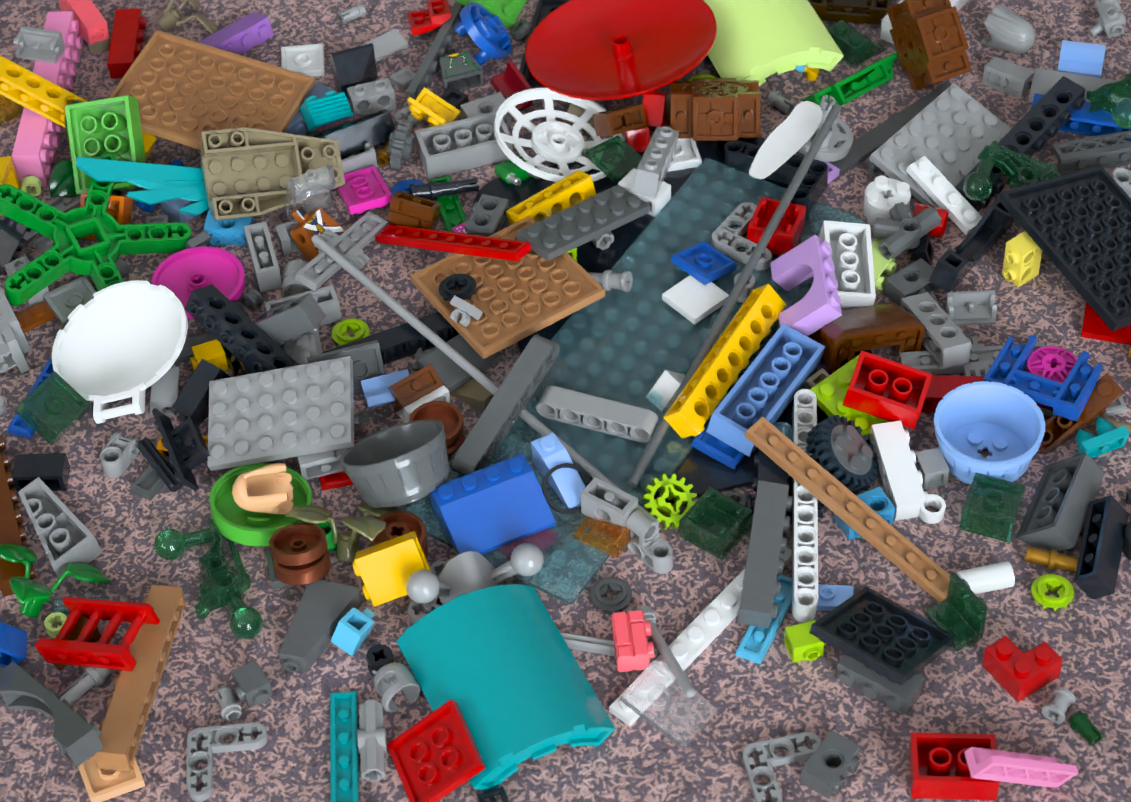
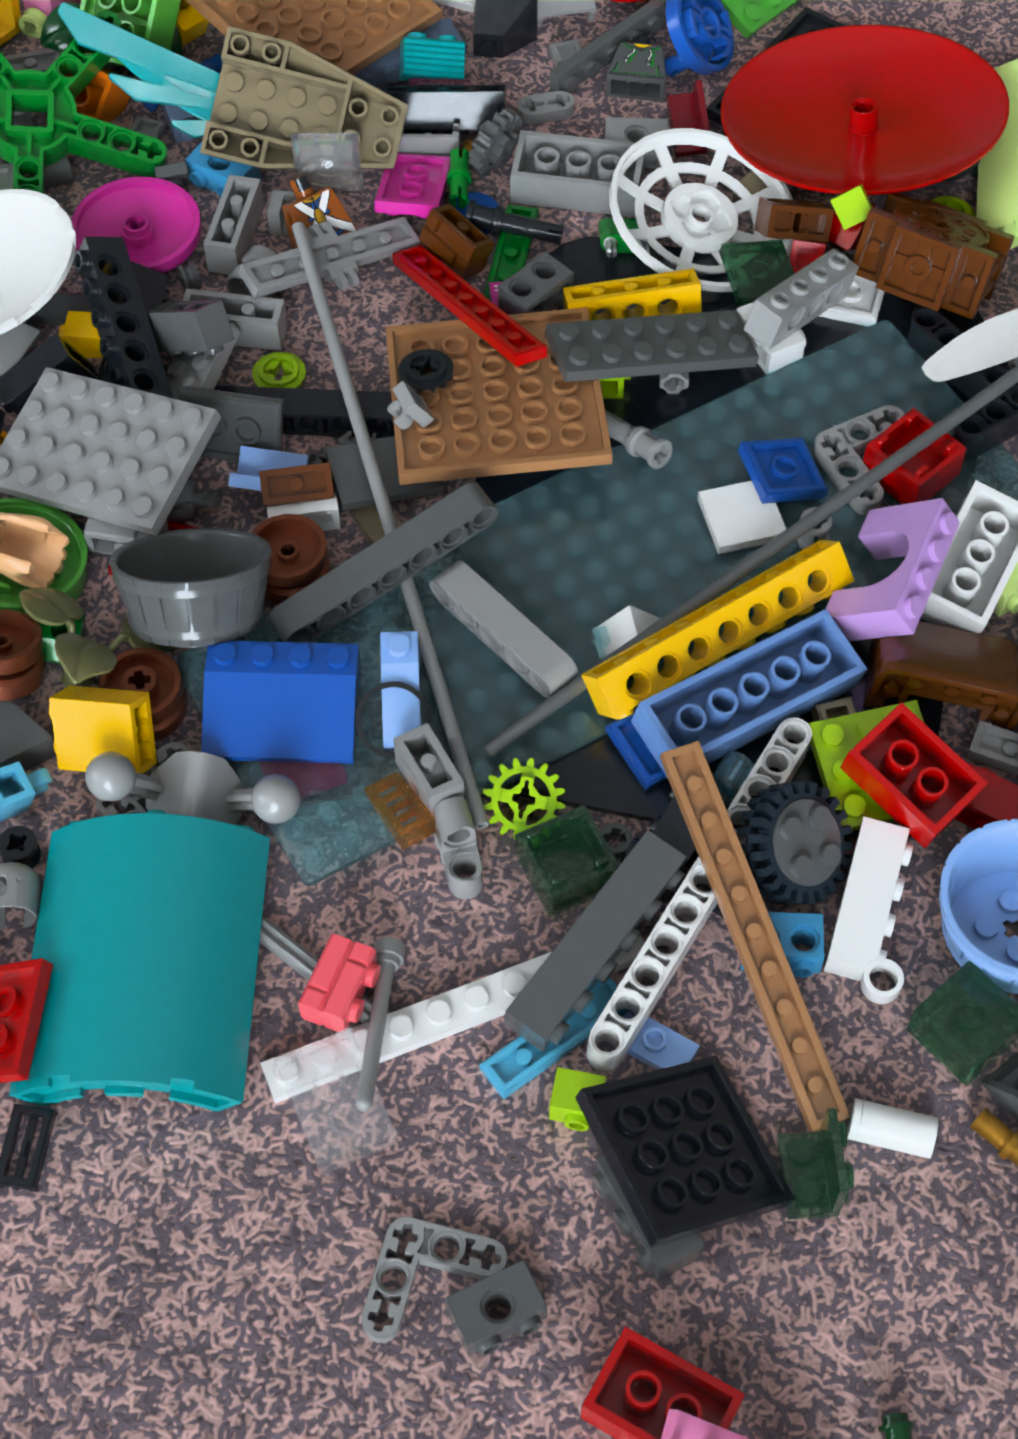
camera: 25 degrees right, 10 degrees up
(371, 97) = (504, 64): light grey brick -> none
(389, 174) = (459, 178): none -> green pin
(432, 109) = (566, 109): yellow bracket -> none
(455, 98) = (607, 105): black plate -> none
(520, 30) = (754, 44): dark grey tile -> none
(618, 587) = (358, 885): dark grey gear -> none
(654, 98) = (852, 206): none -> lime tile
(933, 467) = (918, 917): light grey brick -> none
(1019, 671) = (859, 1309): red brick -> none
(1053, 583) = (994, 1183): lime gear -> none
(1058, 705) = (880, 1384): light grey bush -> none

